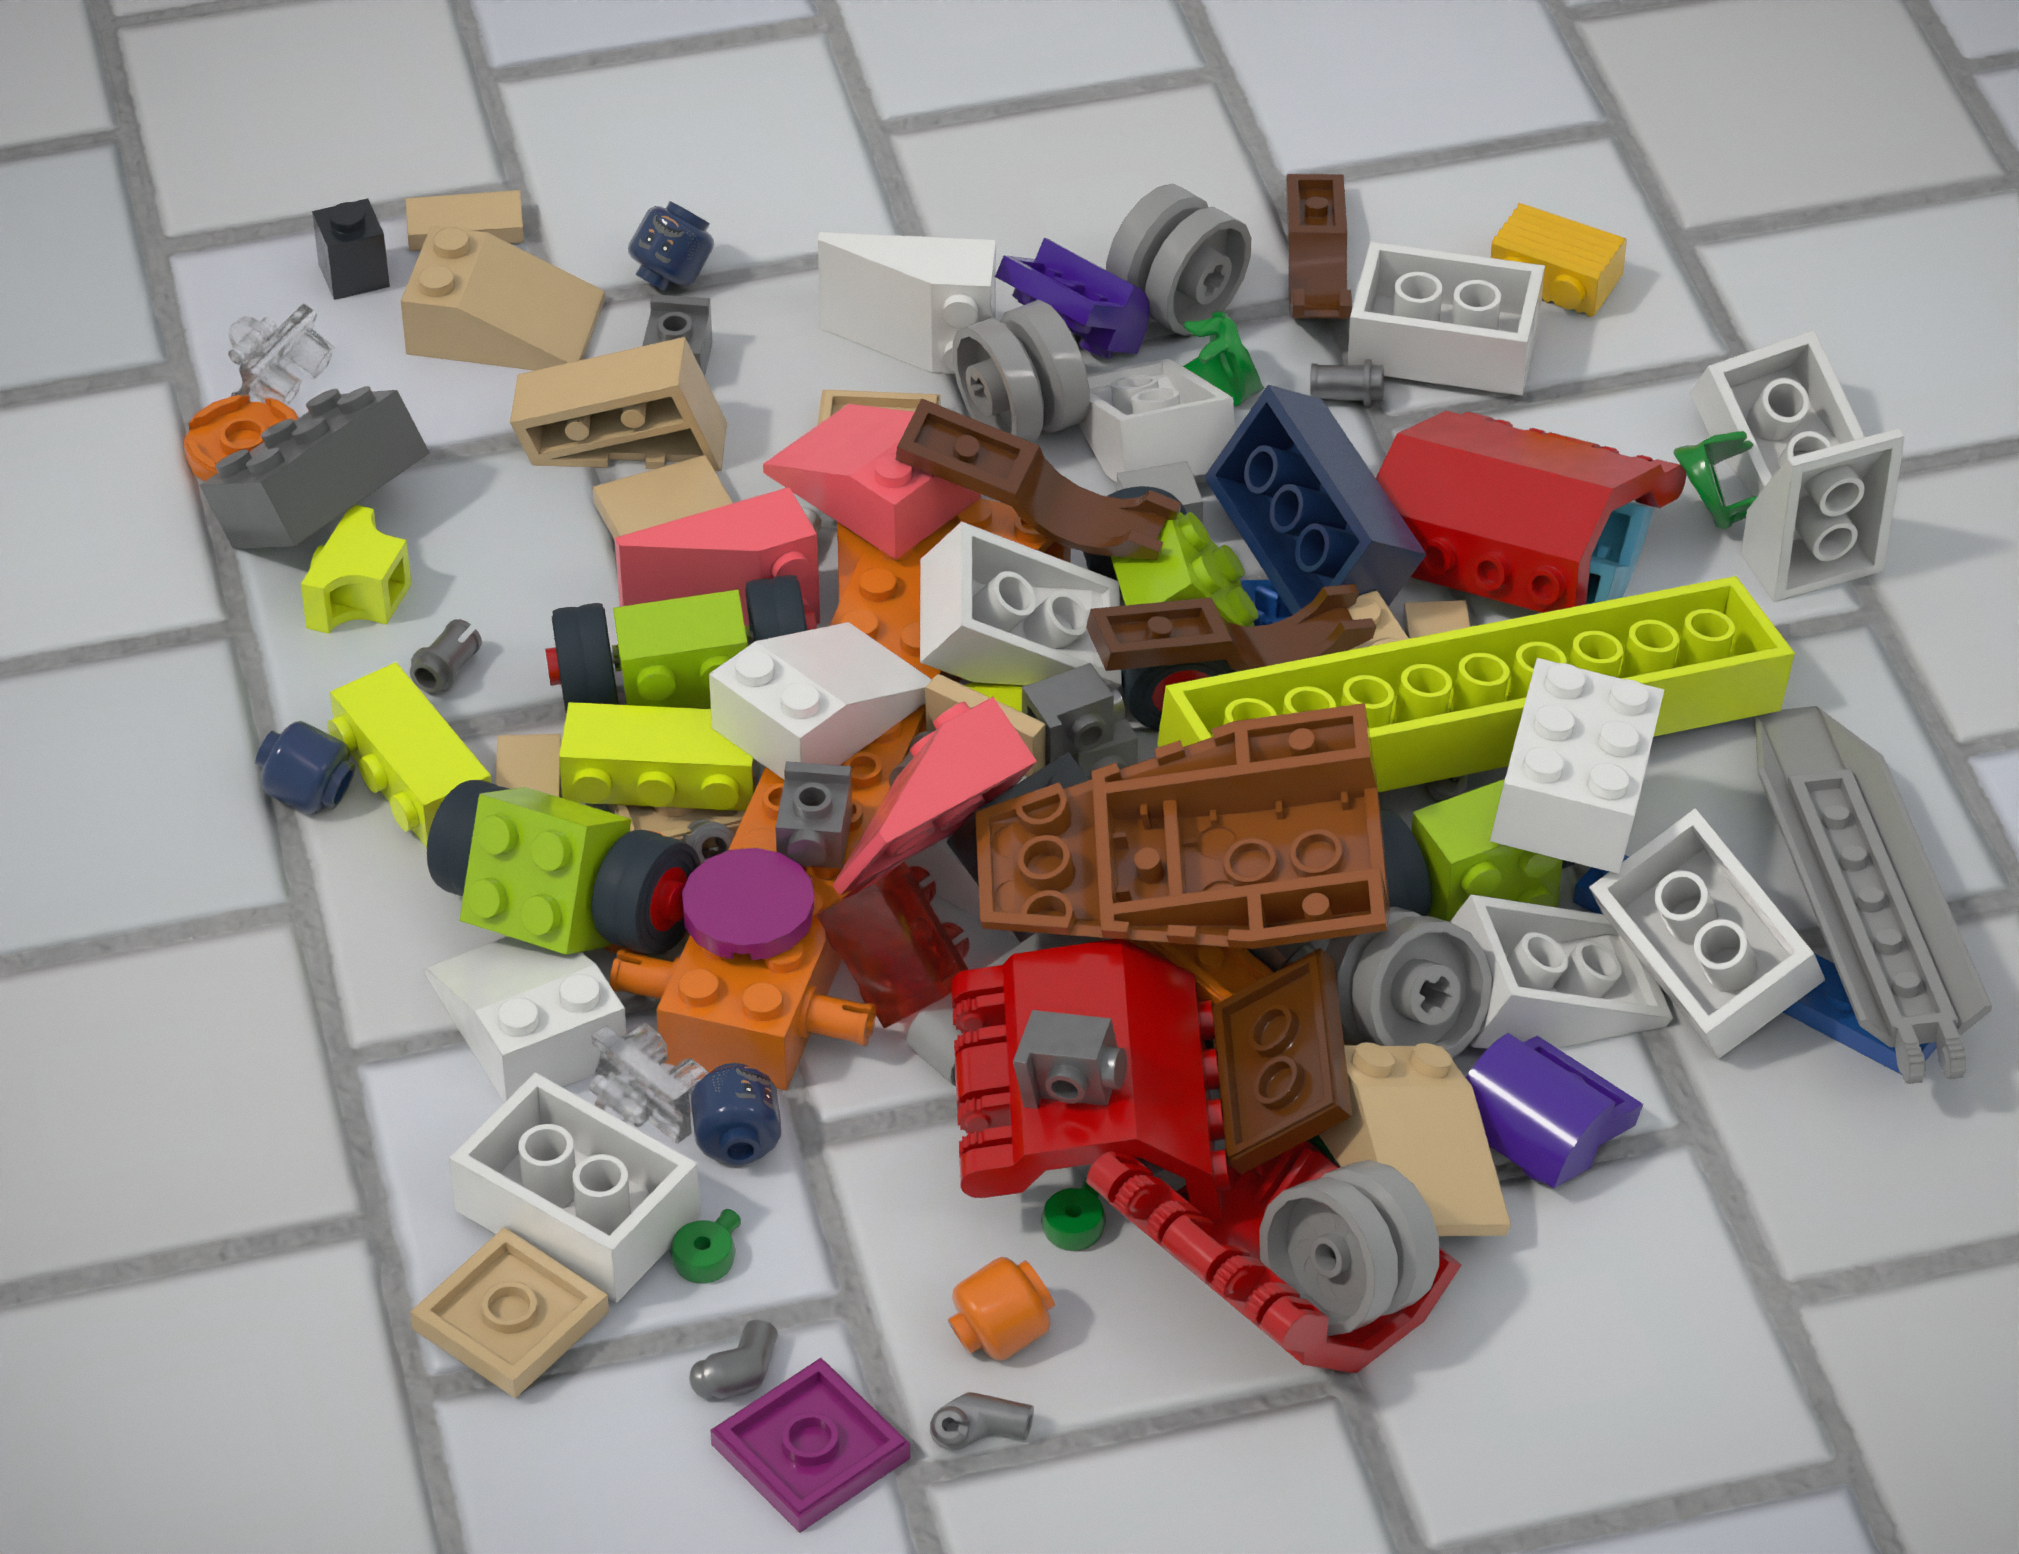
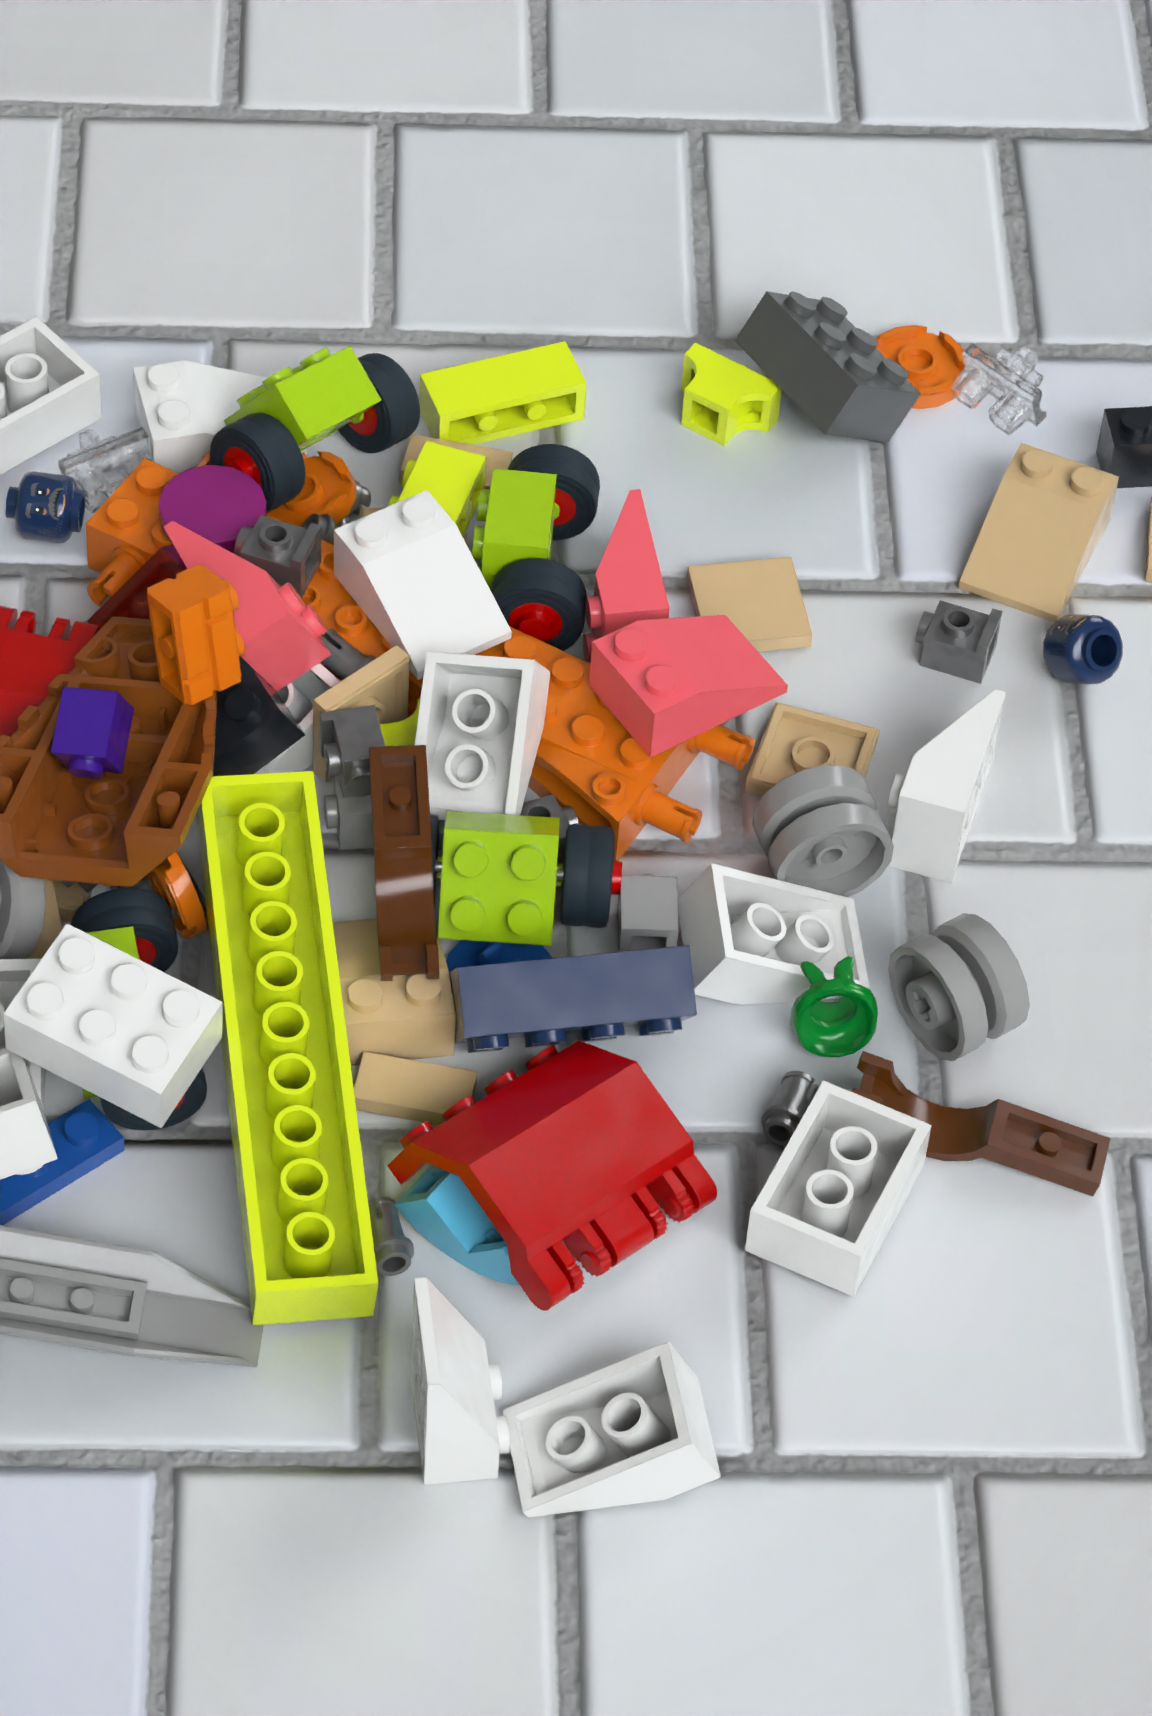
camera: 100 degrees right, 5 degrees up
(305, 767) = (506, 328): dark blue head -> none
(436, 666) = (604, 430): flat silver pin -> none
(620, 407) = (865, 583): tan wedge -> none
(1021, 477) = (591, 734): reddish brown piece -> none
(1072, 749) = (195, 634): none -> orange brick
(1091, 300) = (921, 888): dark purple brick -> none
(1197, 851) = (92, 731): none -> dark purple brick
(1577, 258) = (922, 1320): yellow brick -> none
(1701, 471) = (574, 1334): green piece -> none

